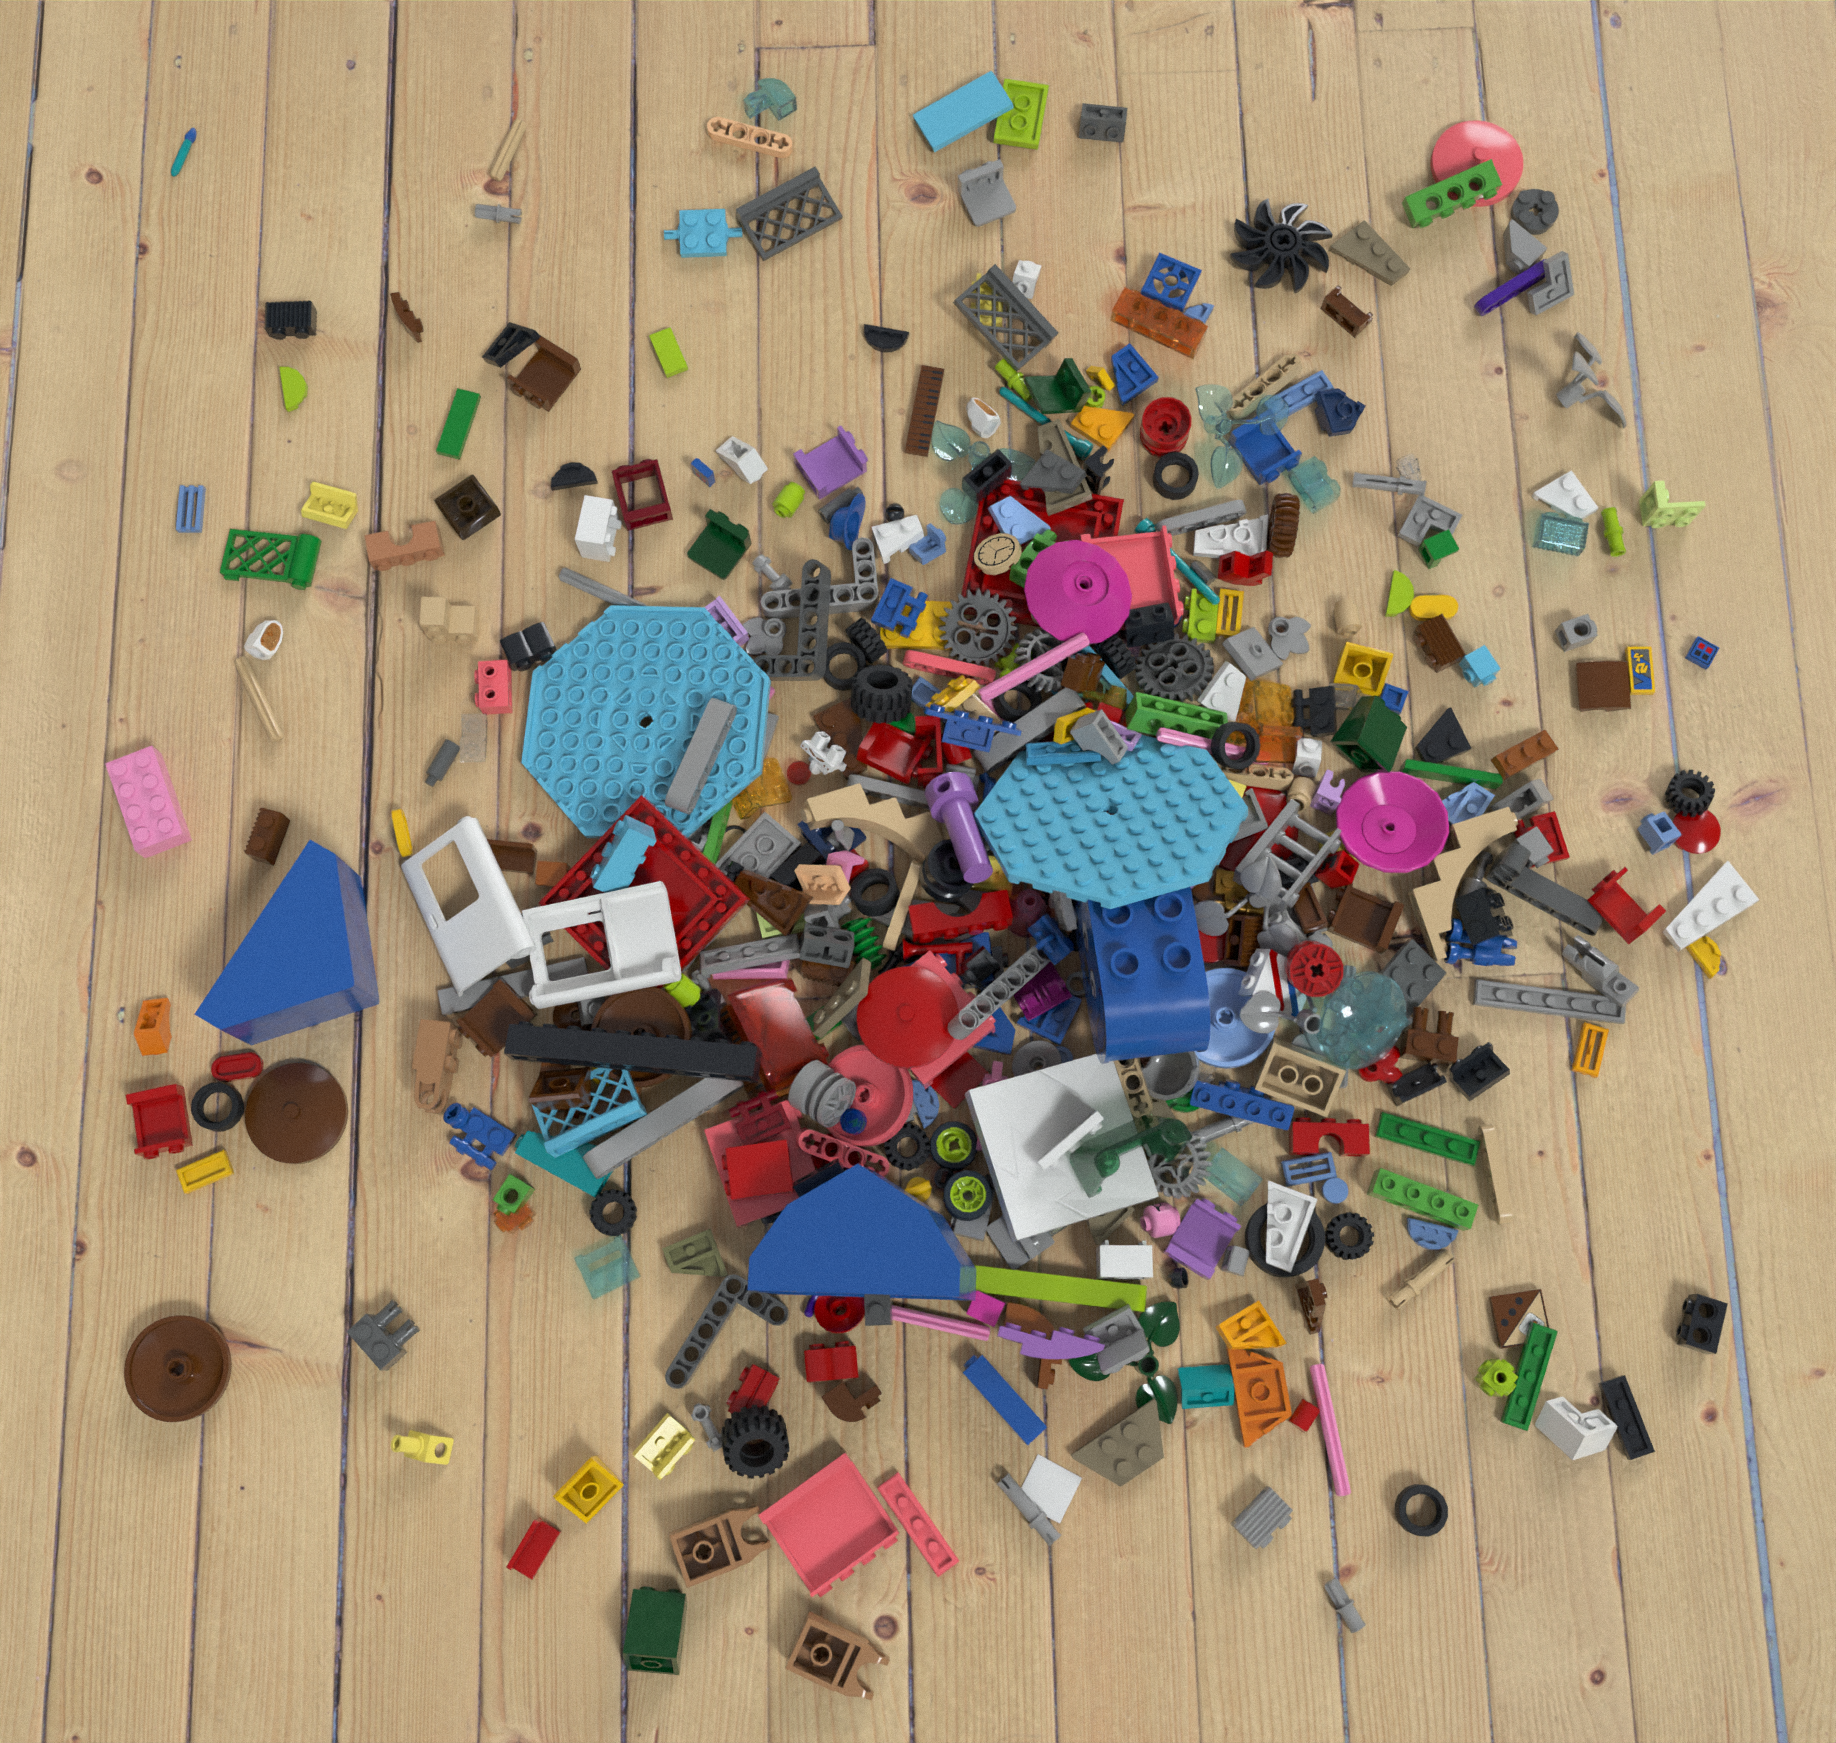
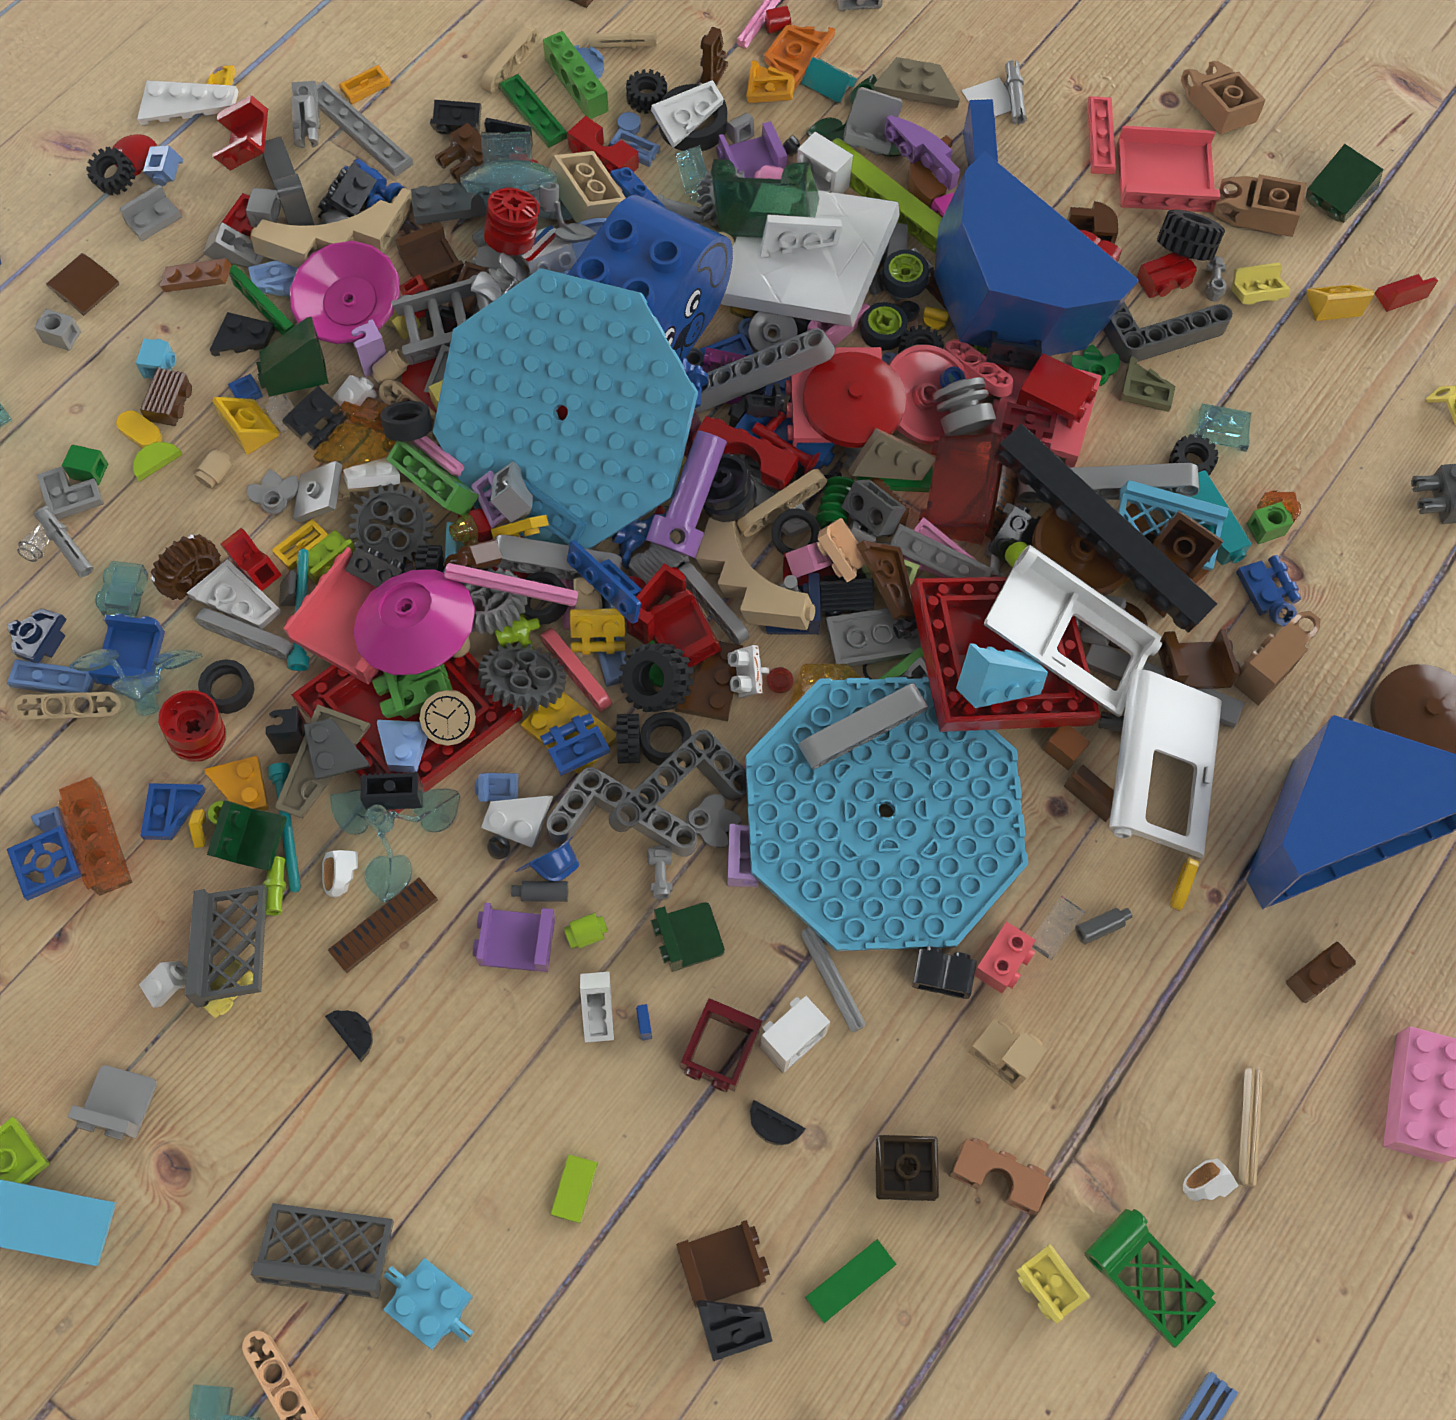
camera: 145 degrees left, 10 degrees down
(744, 1250) = (1096, 363): none -> green plate
(1621, 785) = (149, 213): none -> light grey bracket
(1640, 670) = (35, 281): tile -> none

